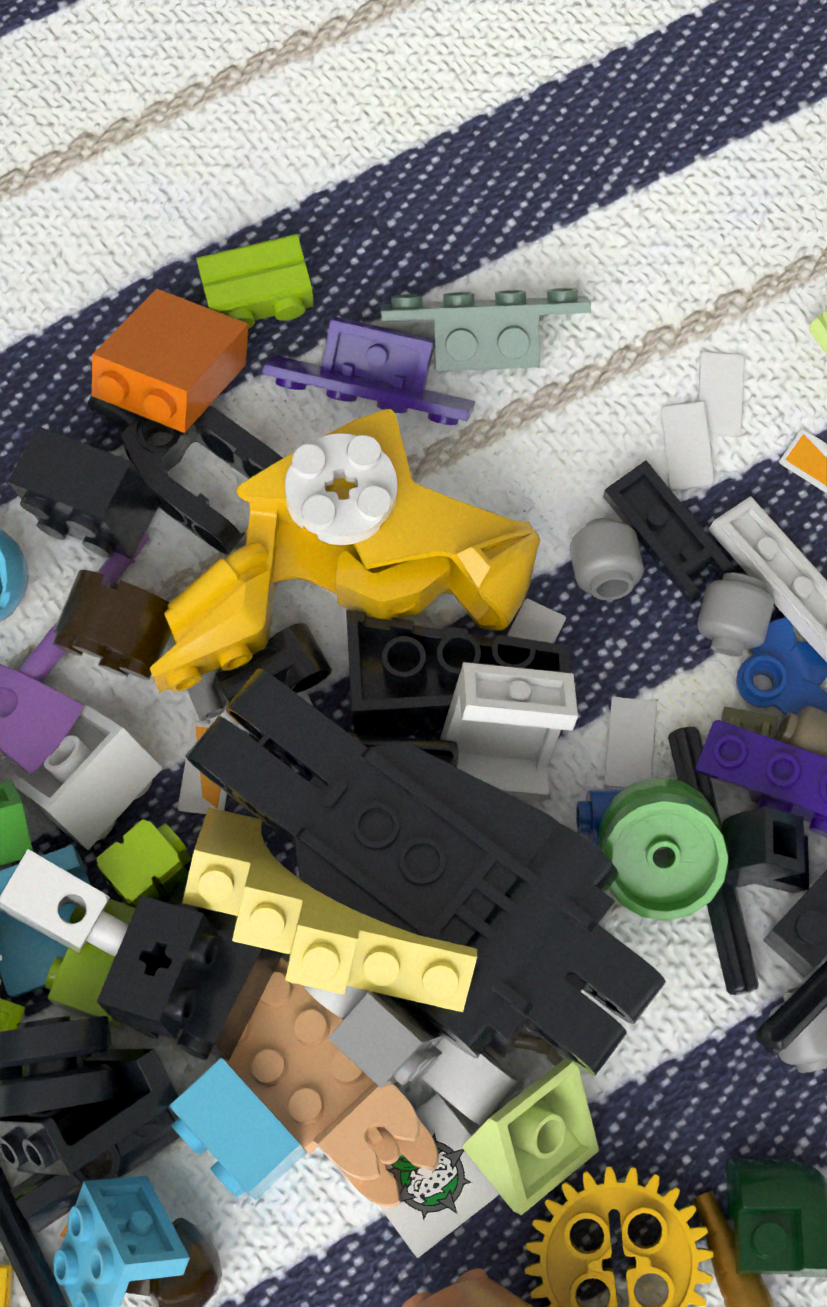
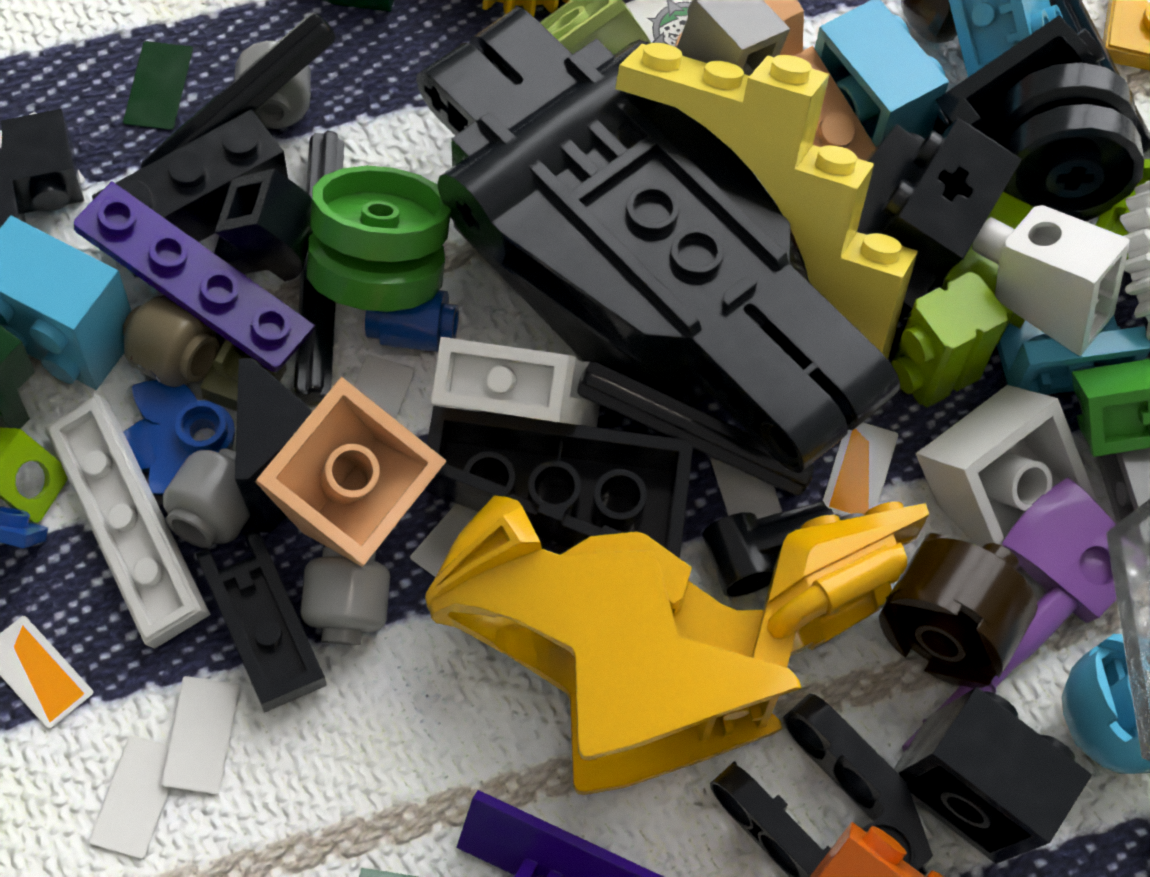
camera: 175 degrees left, 10 degrees down
(347, 457) = (639, 668): white plate -> none
(621, 616) = (349, 473): none -> light nougat slope
(698, 656) = (265, 422): none -> black slope

